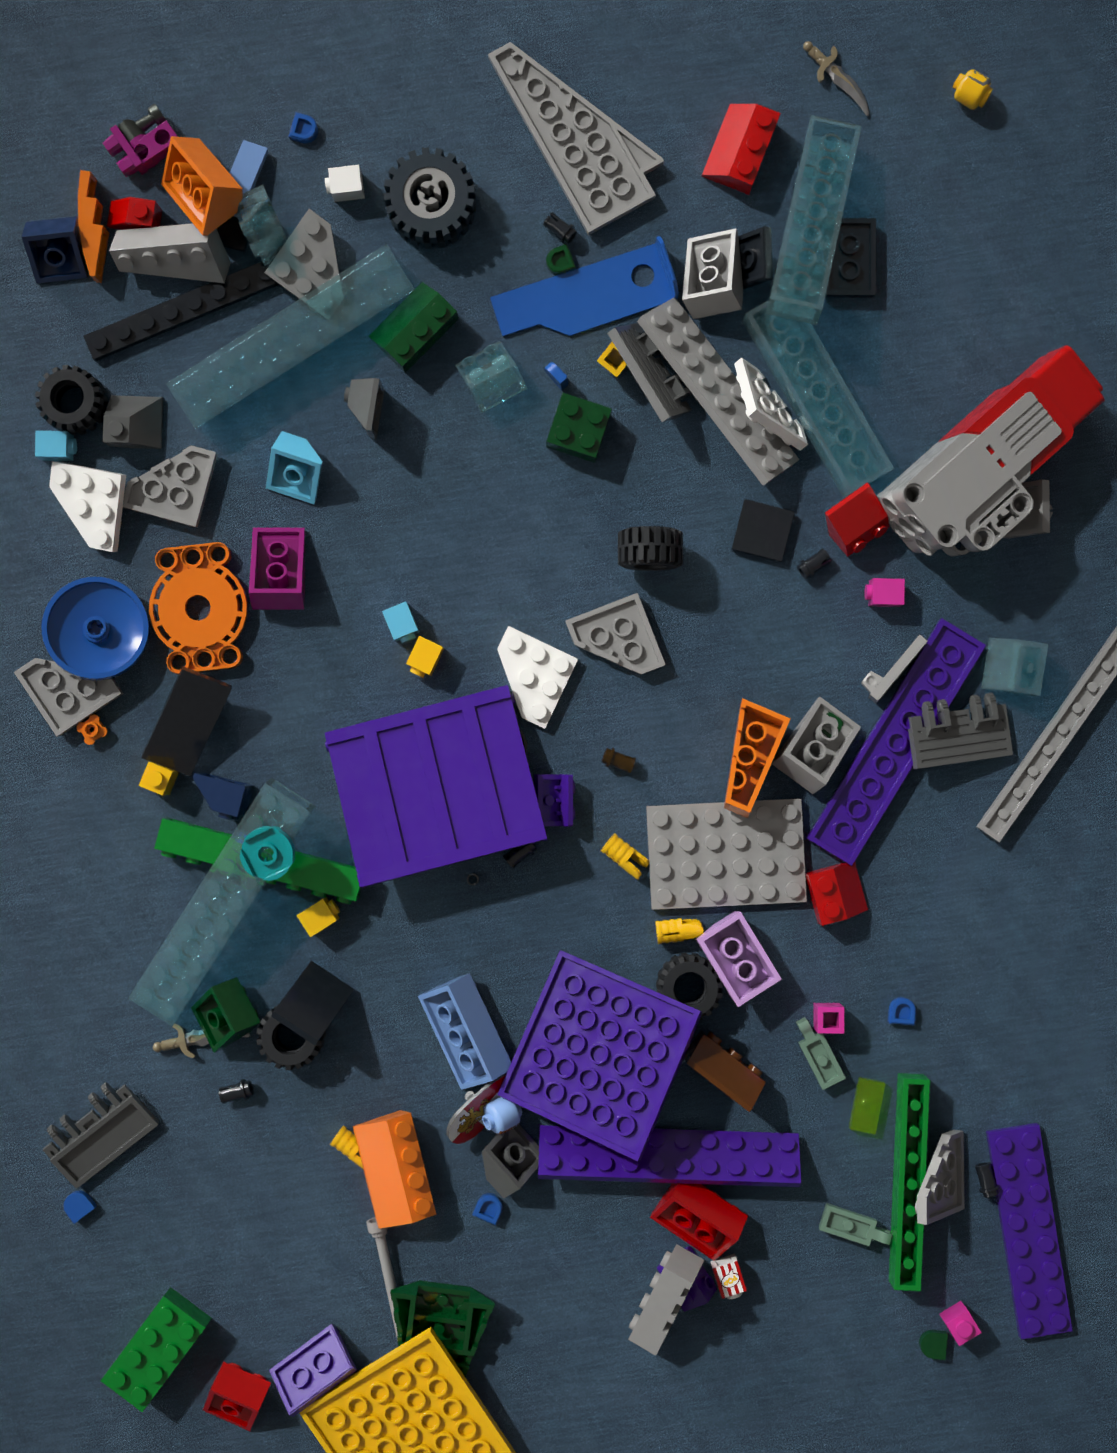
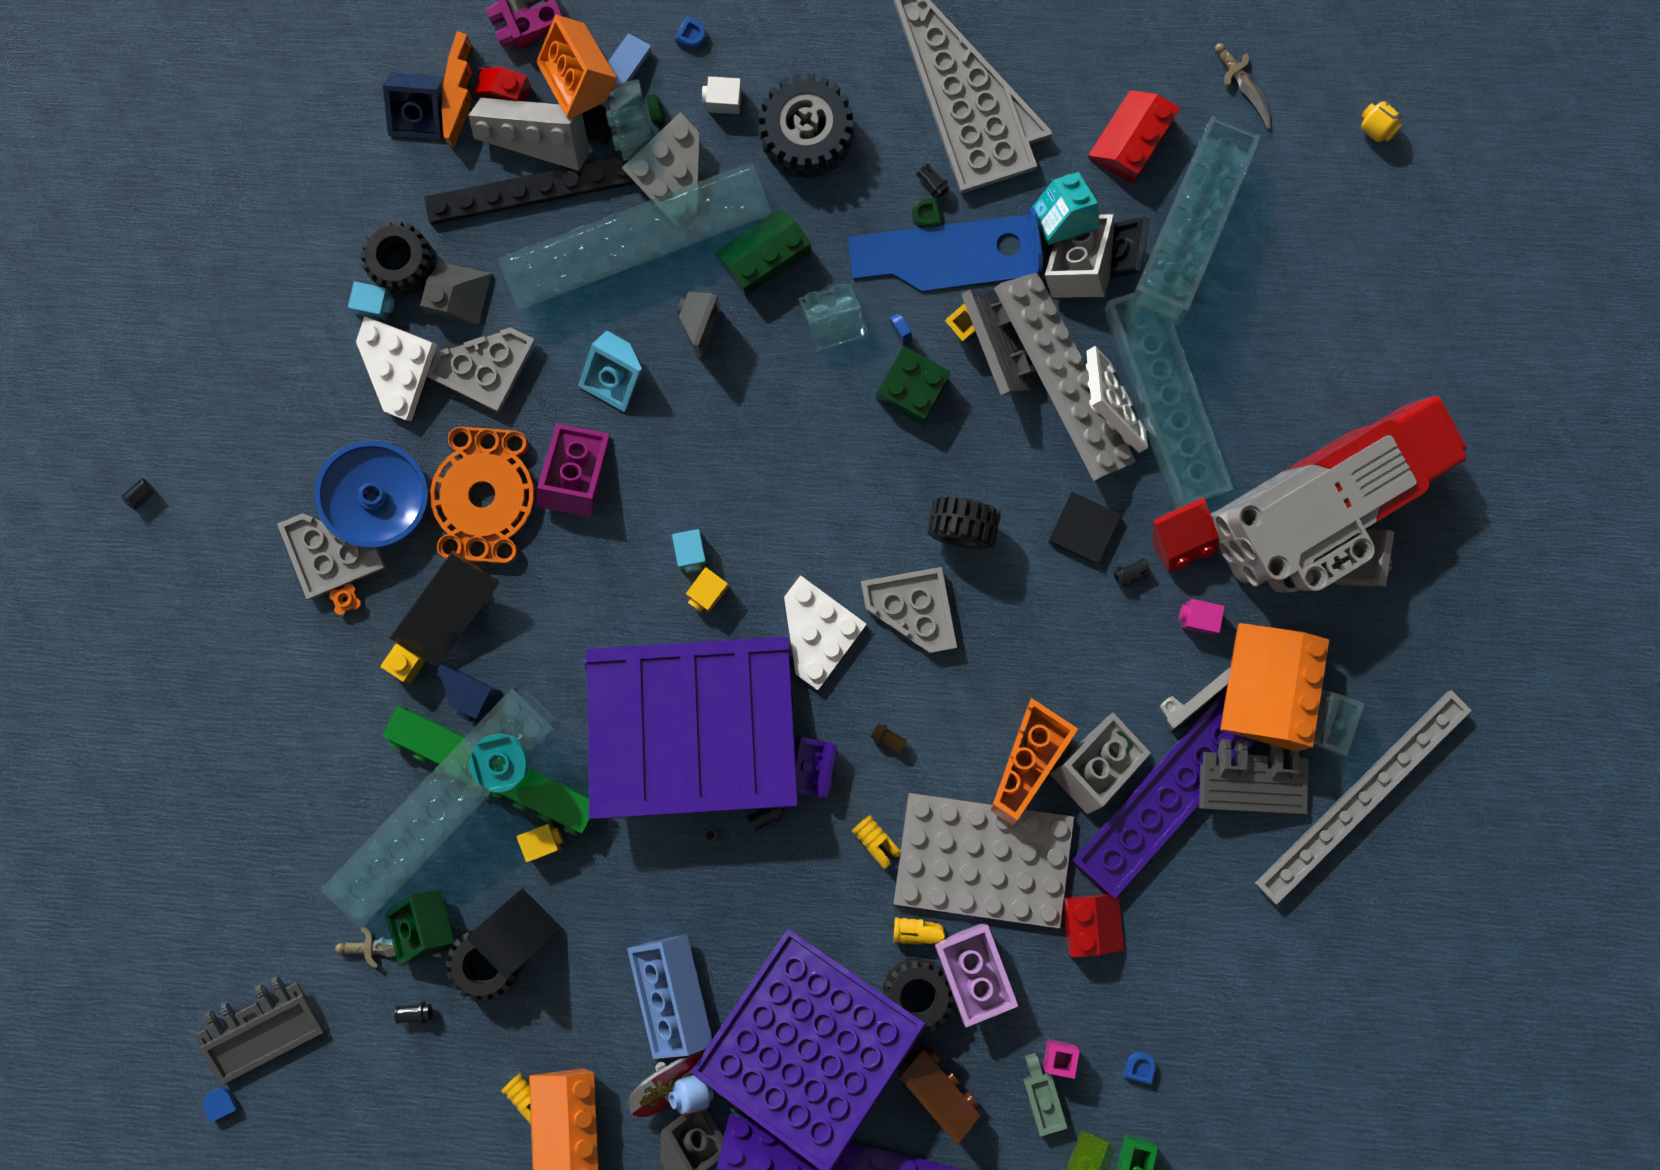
camera: 10 degrees right, 5 degrees down
(284, 209) = (655, 109): none -> dark green tile
(691, 232) = (1066, 209): none -> teal slope
(854, 260) = (1229, 270): black plate -> none
(963, 644) = (1275, 686): none -> orange slope

